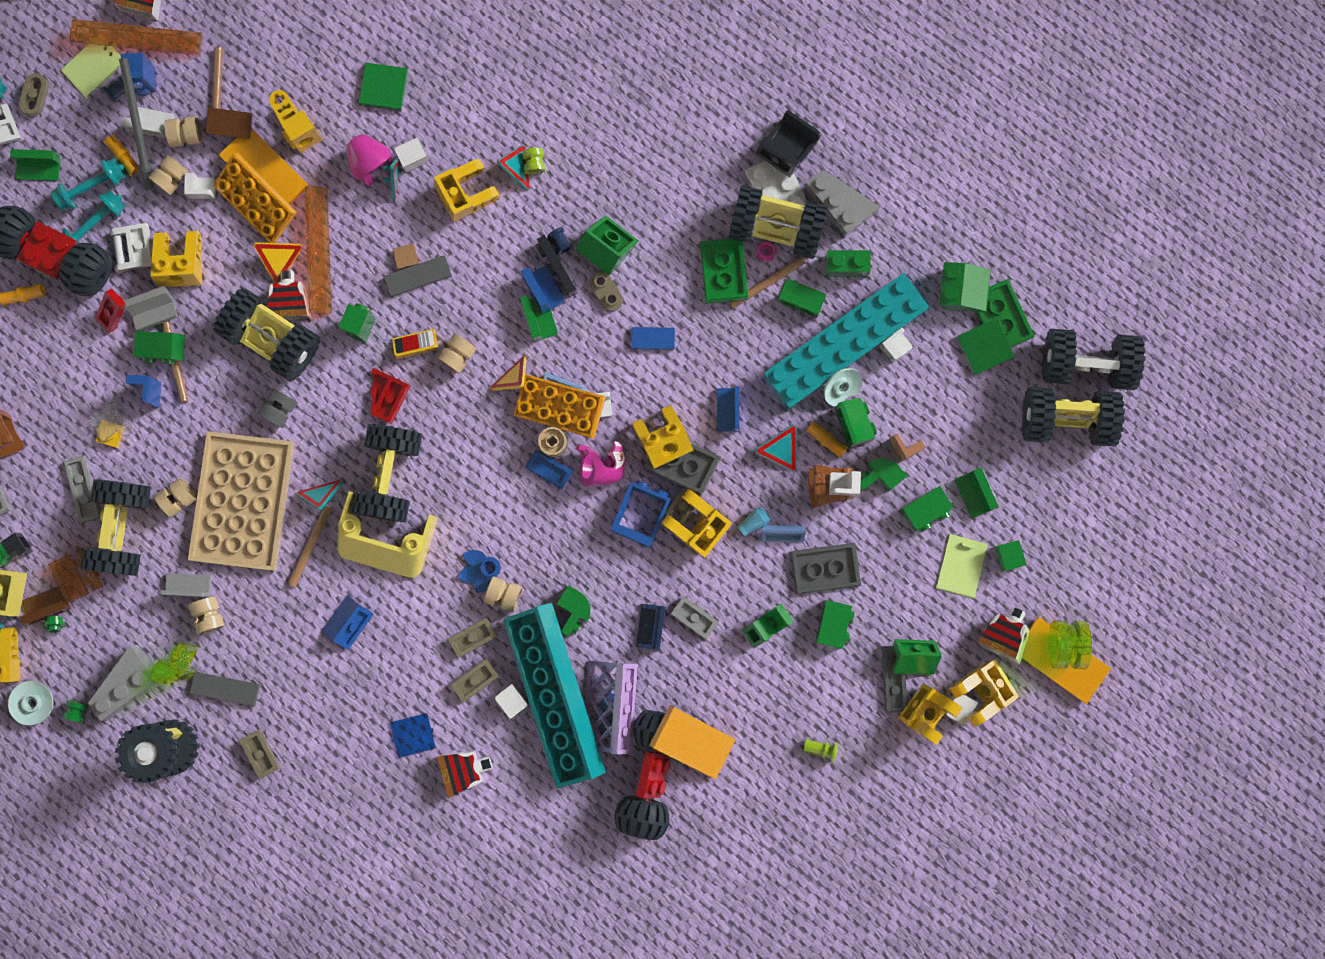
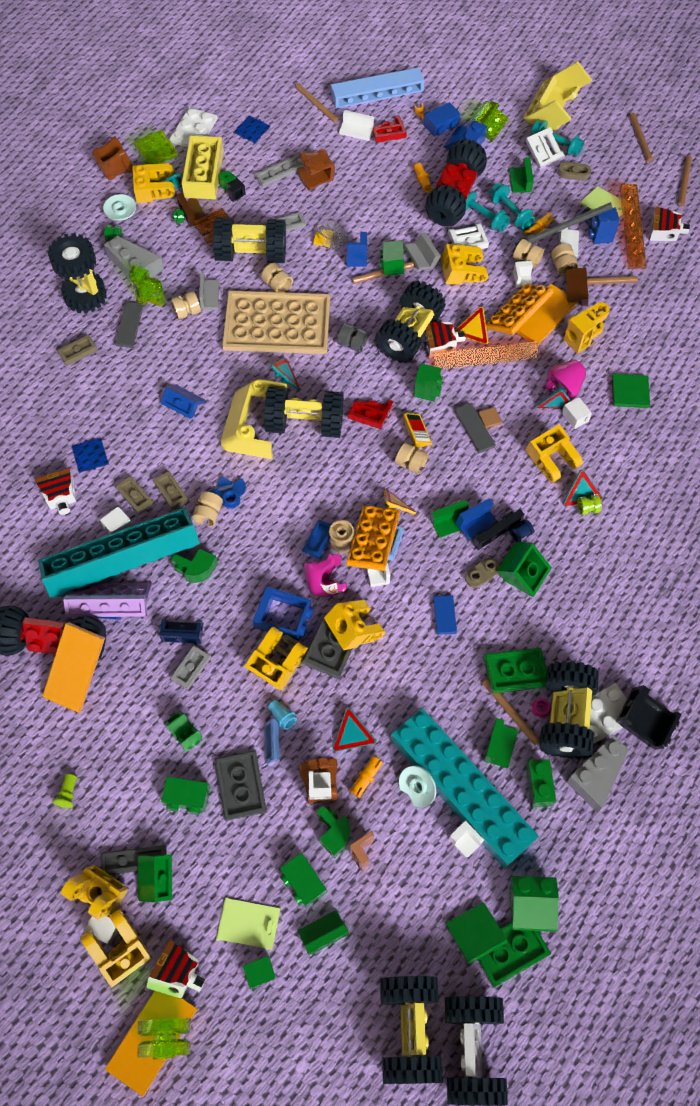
camera: 85 degrees right, 20 degrees down
(110, 310) = (419, 225): red plate -> none
(309, 546) = (241, 370): medium nougat bar -> none
(728, 409) = (386, 684): blue panel -> none
(855, 422) = (383, 800): green slope -> none

